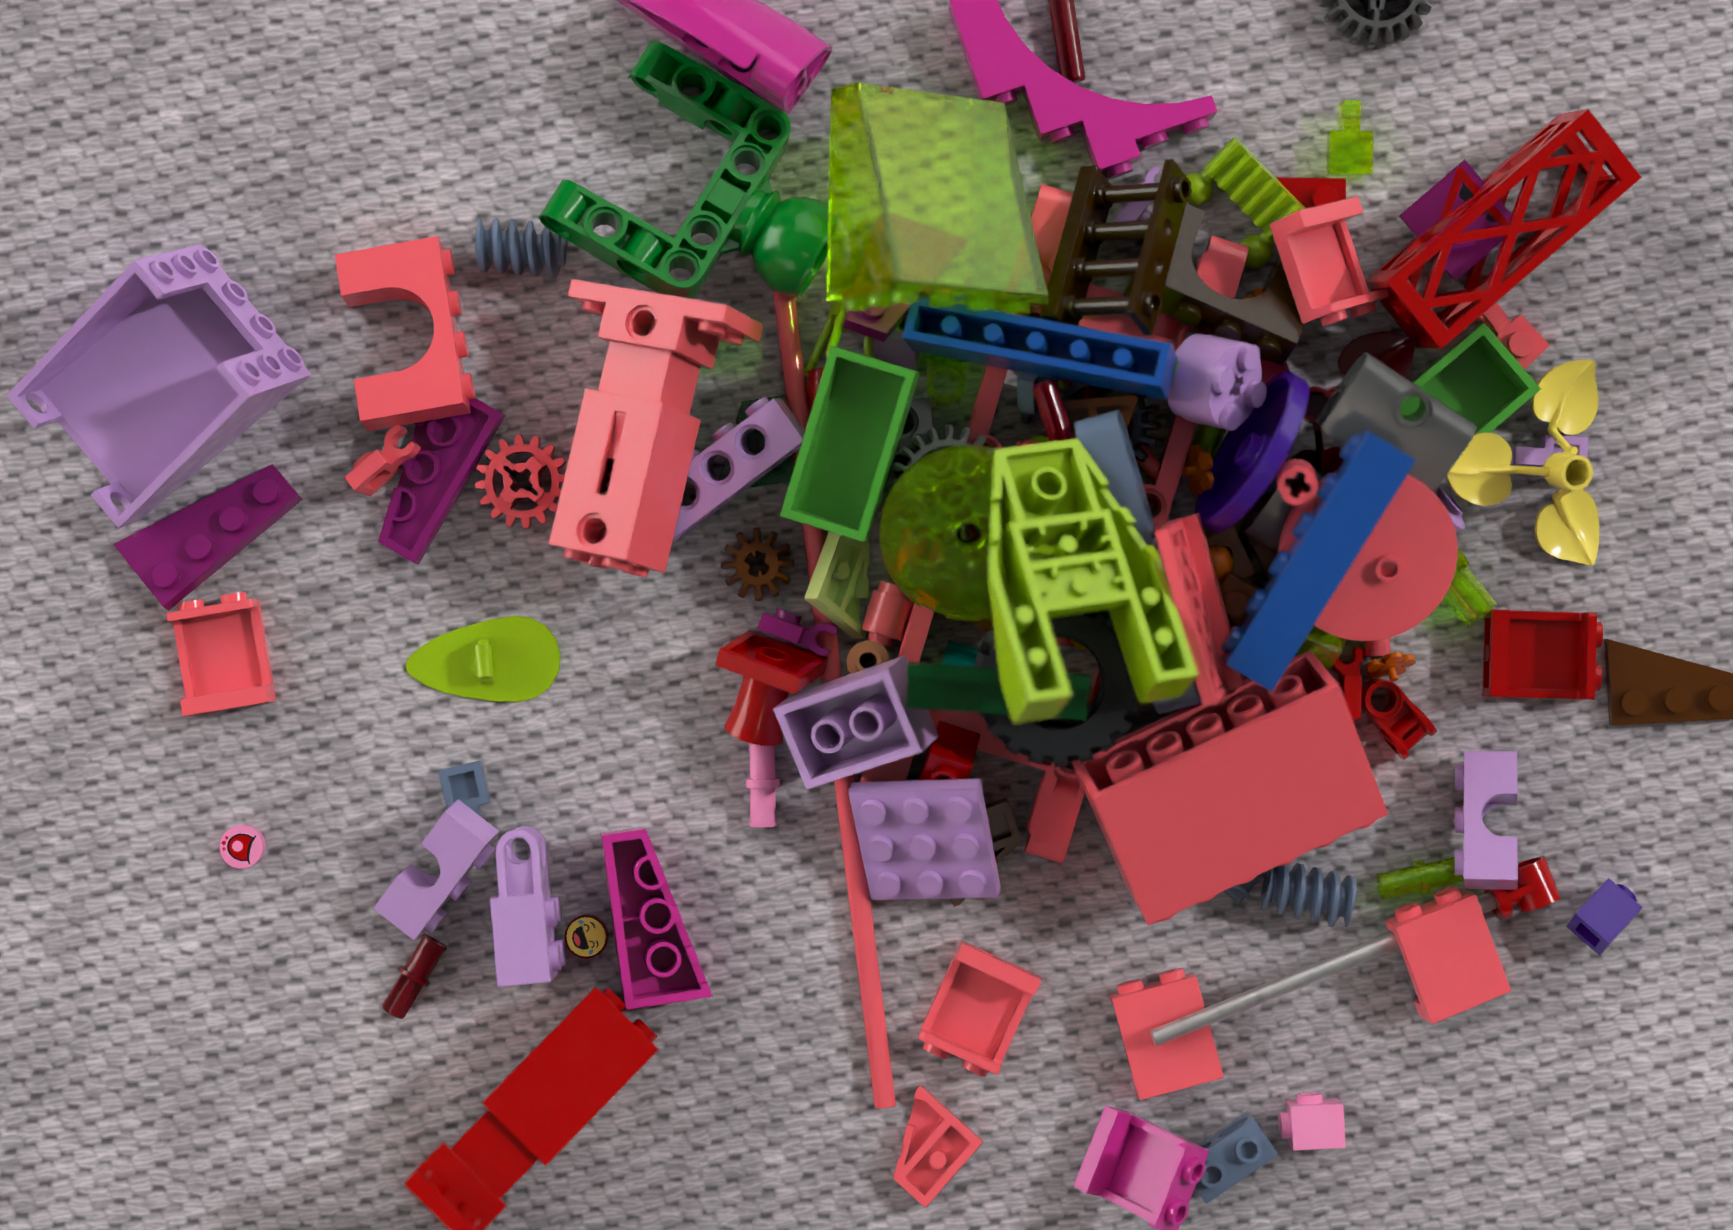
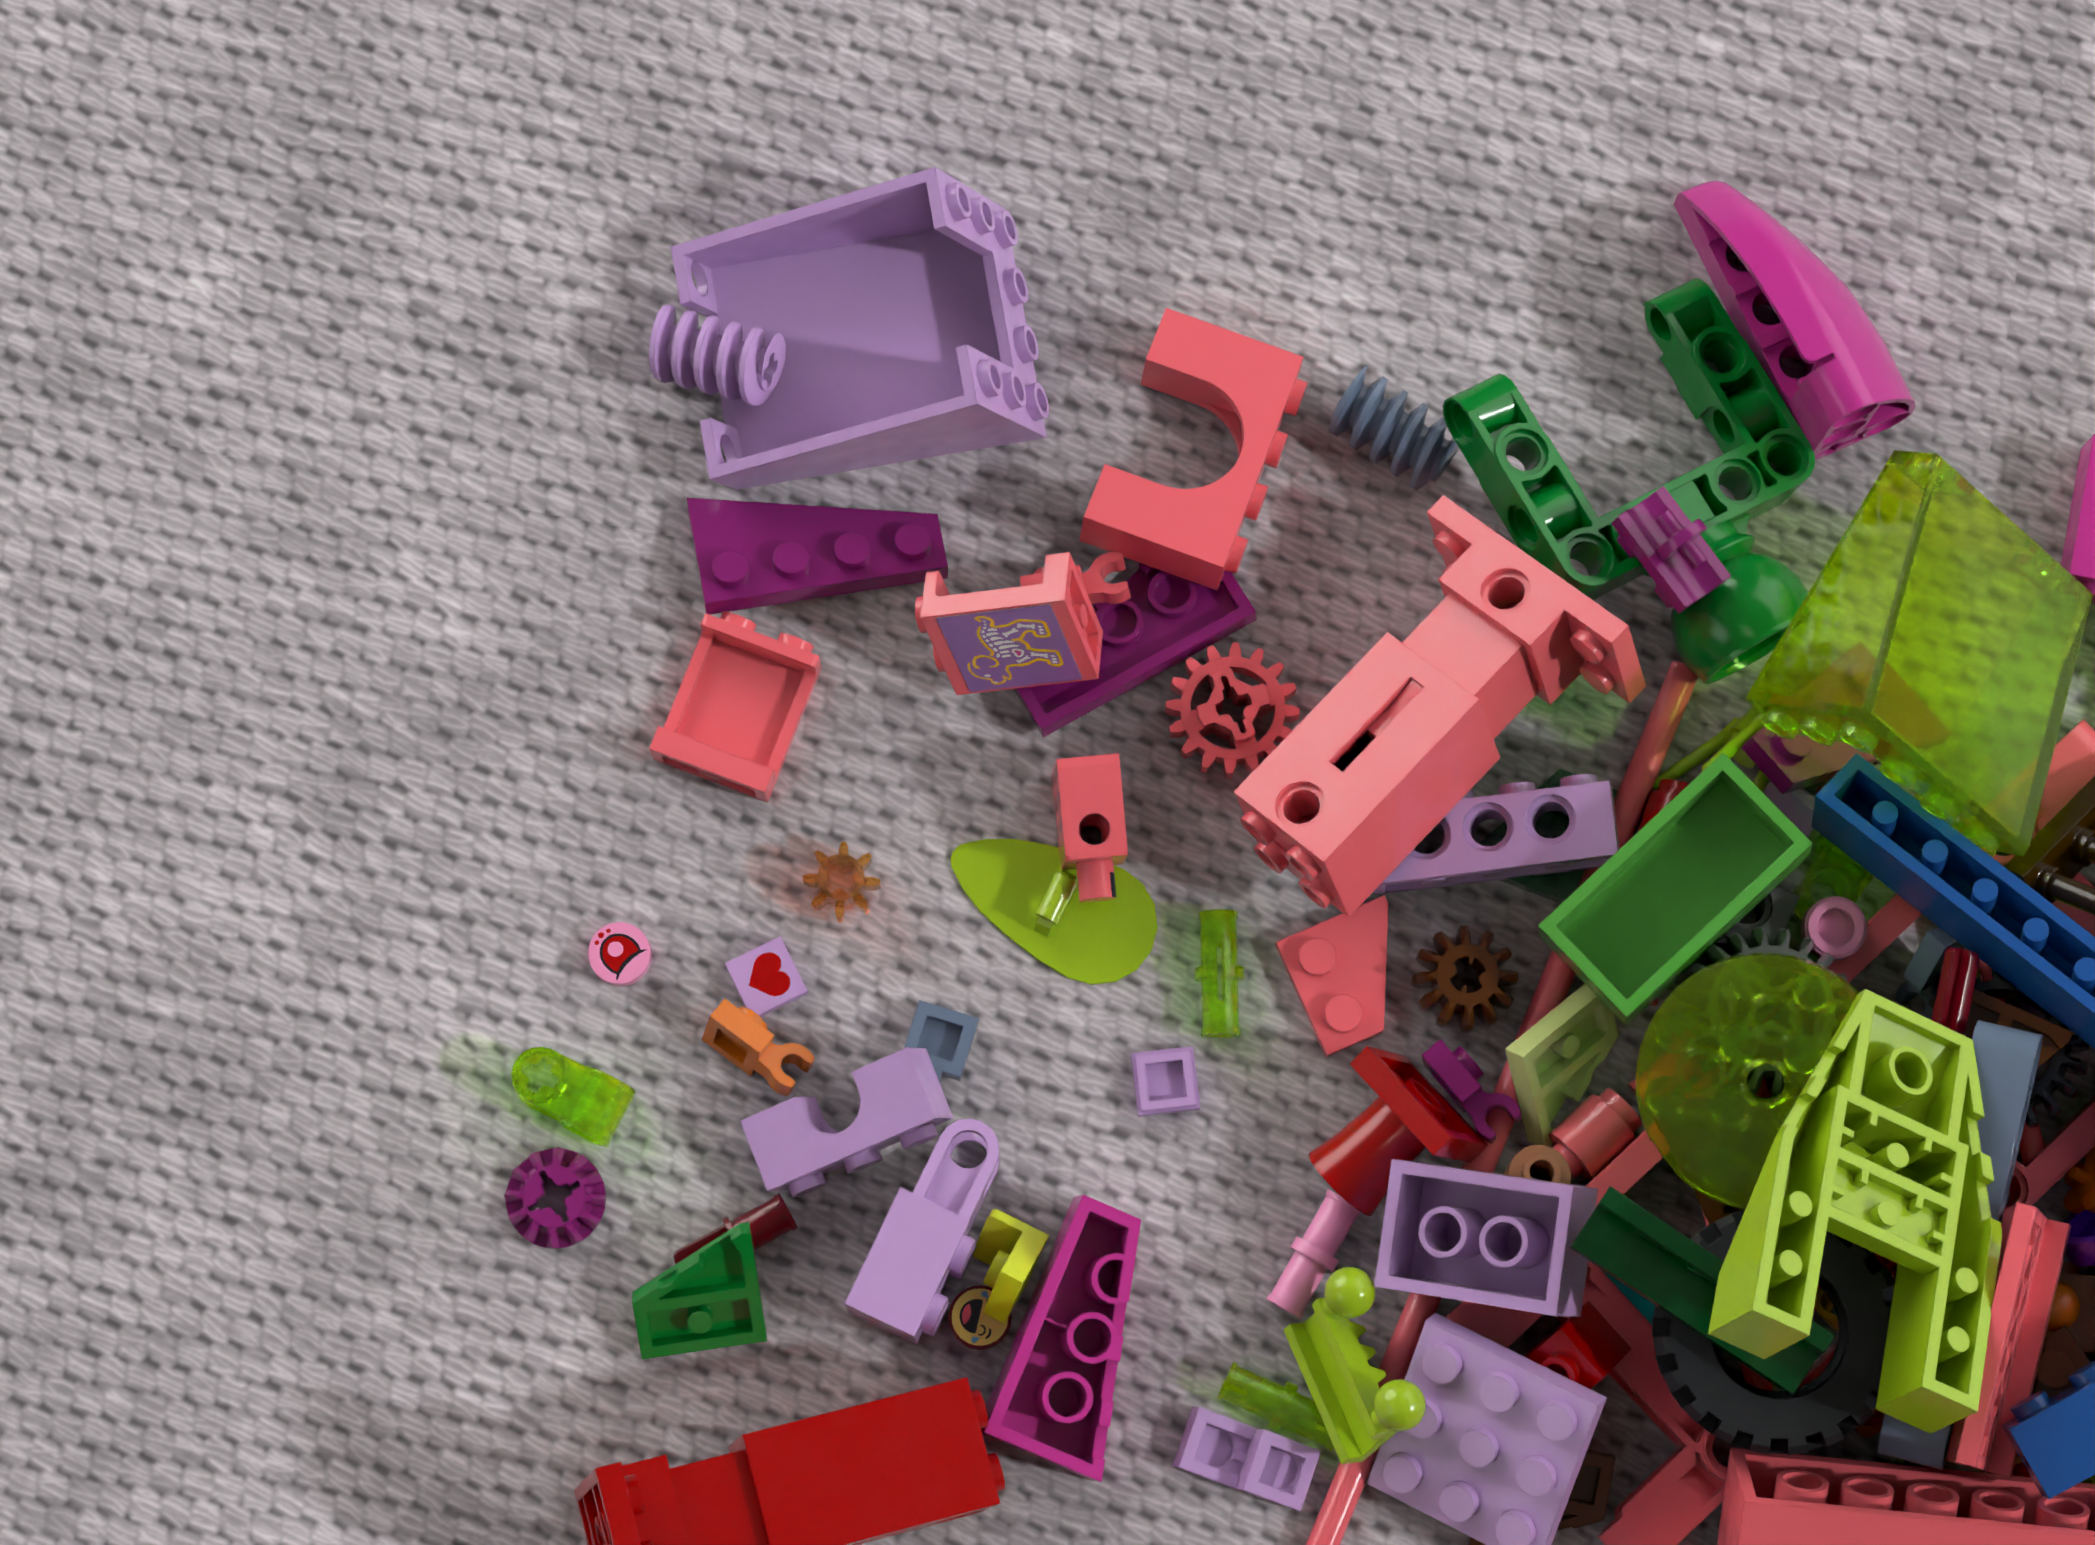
camera: 30 degrees right, 10 degrees down
(75, 447) = (714, 360): none -> lavender piece
(270, 949) = (582, 1098): none -> clear neon green piece
(312, 1010) = (583, 1206): none -> magenta gear
(339, 809) = (766, 977): none -> lavender tile
(347, 855) = (748, 1044): none -> orange plate
(359, 719) = (839, 898): none -> clear orange gear
(362, 518) = (1013, 633): none -> panel
(416, 1025) = (703, 1300): none -> green wing
(462, 589) = (1084, 795): none -> coral torso
(585, 890) = (1012, 1253): none -> neon yellow bracket
(594, 620) = (1219, 930): none -> clear neon green pin
(614, 730) = (1165, 1081): none -> lavender tile
(683, 603) = (1341, 975): none -> coral wing
(728, 235) = (1670, 550): none -> magenta hips
(792, 926) = (1246, 1458): none -> lavender slope
(795, 883) = (1275, 1403): none -> clear neon green pin
(816, 849) = (1338, 1371): none -> lime gear
(960, 407) = (1835, 927): none -> bright pink tile

